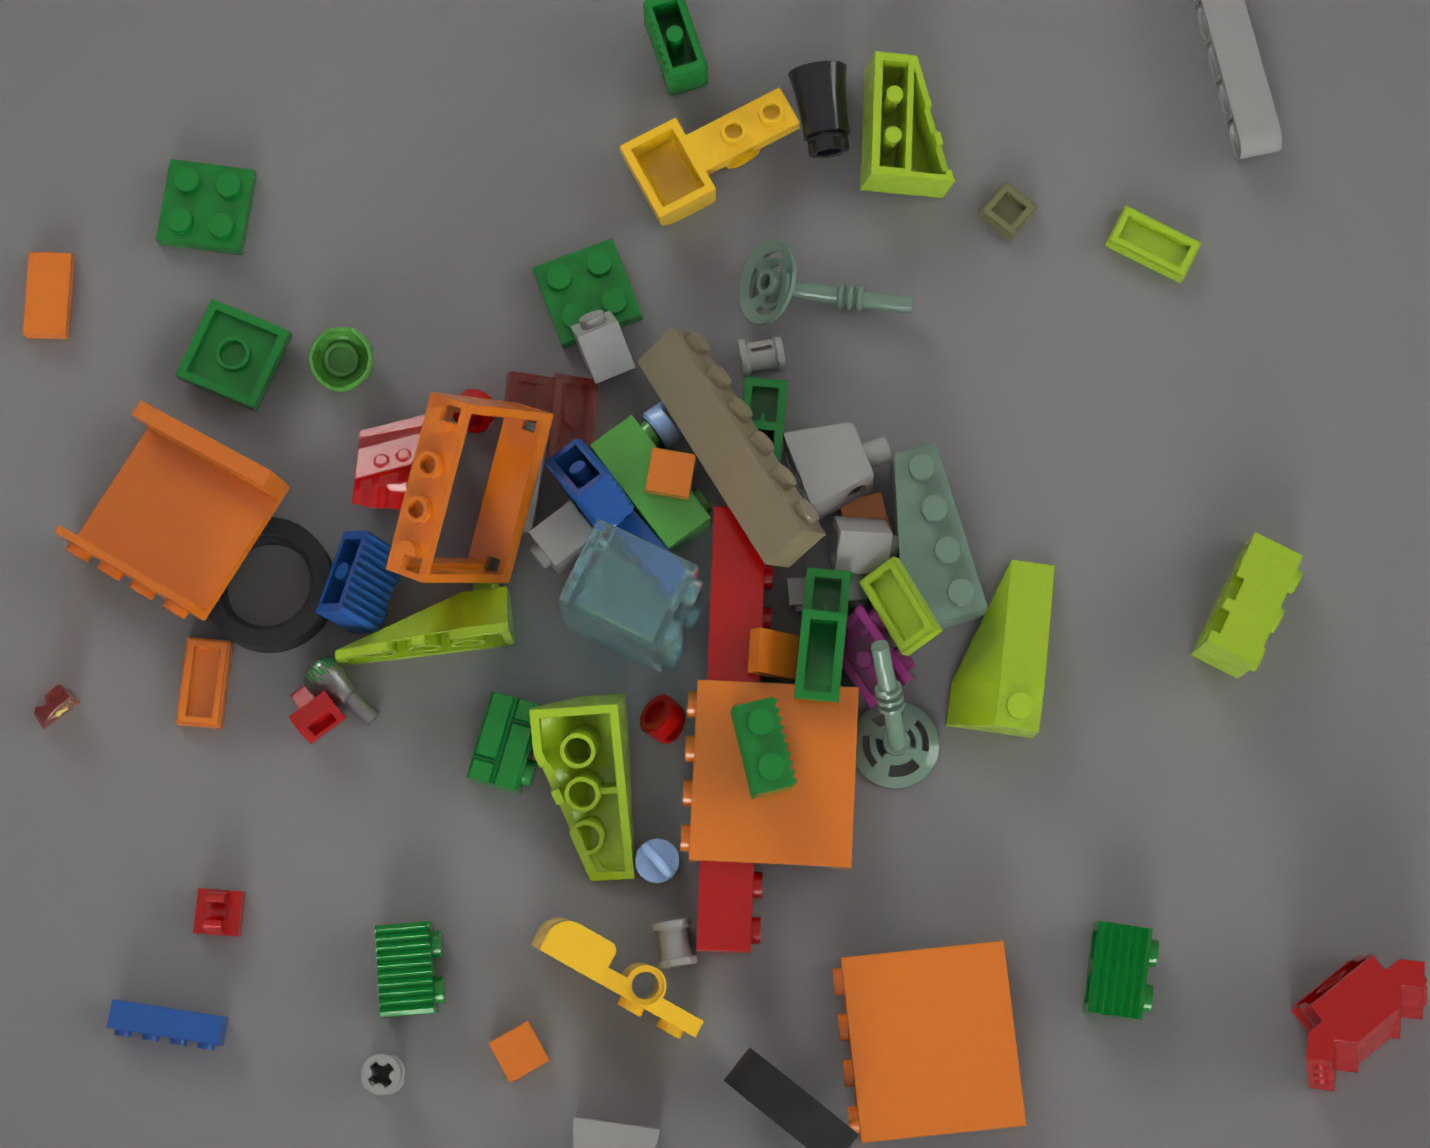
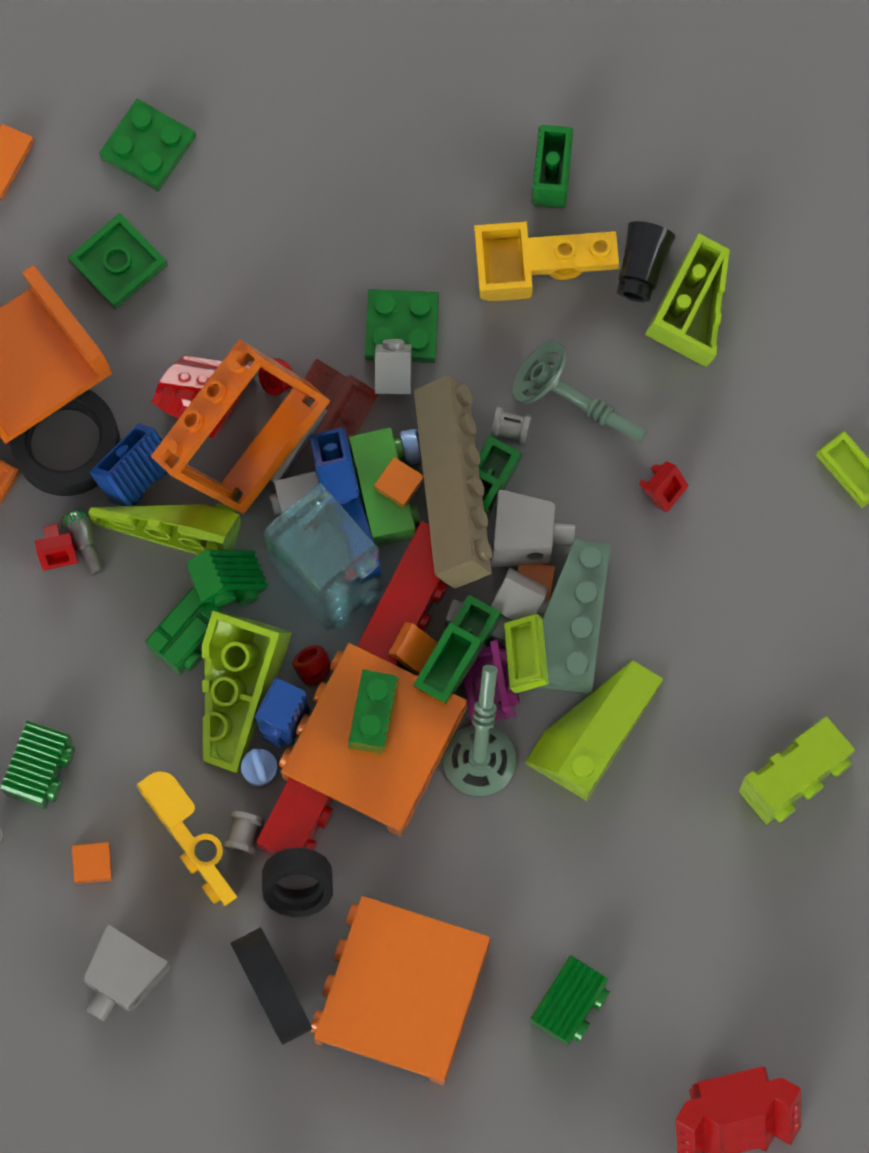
camera: 25 degrees right, 5 degrees down
(341, 358) = (195, 297): bright green hair -> none
(526, 663) = (227, 576): none -> green brick
(658, 791) = (281, 713): none -> blue brick
(753, 957) = (297, 862): none -> black tyre
(961, 350) = (665, 485): none -> red tile
(1007, 211) = (751, 398): olive tile -> none

